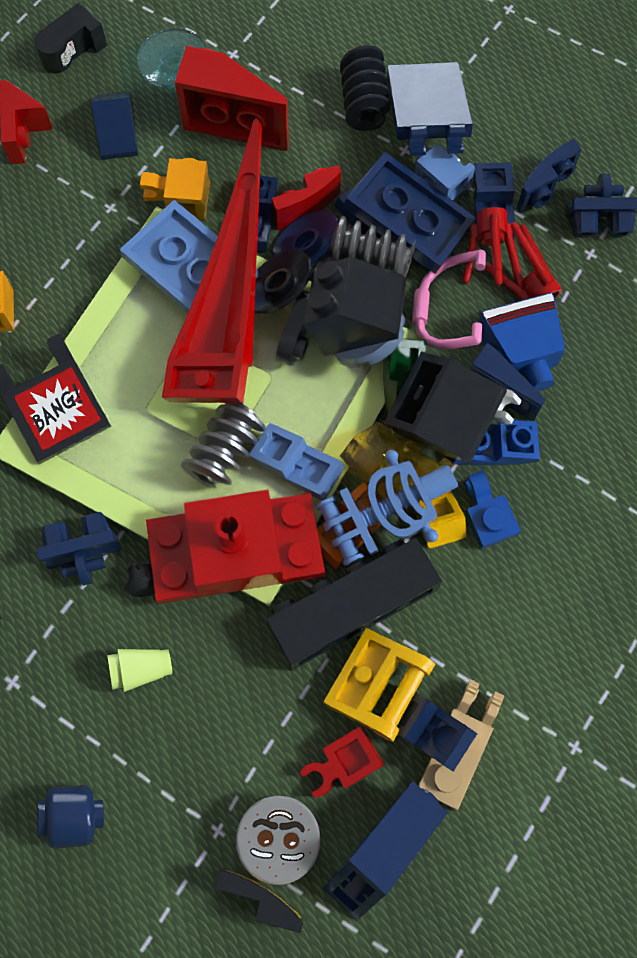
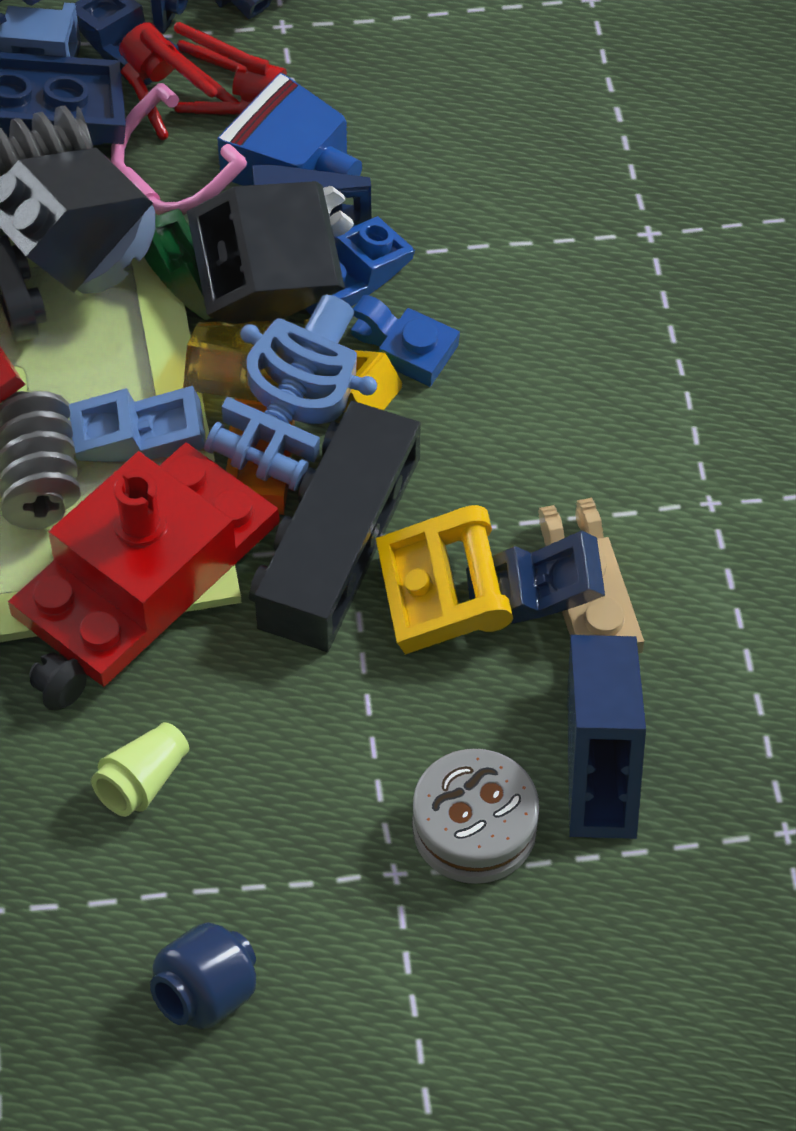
camera: 40 degrees left, 15 degrees down
(272, 907) = (529, 881): black slope -> none
(349, 760) = (478, 681): red plate -> none

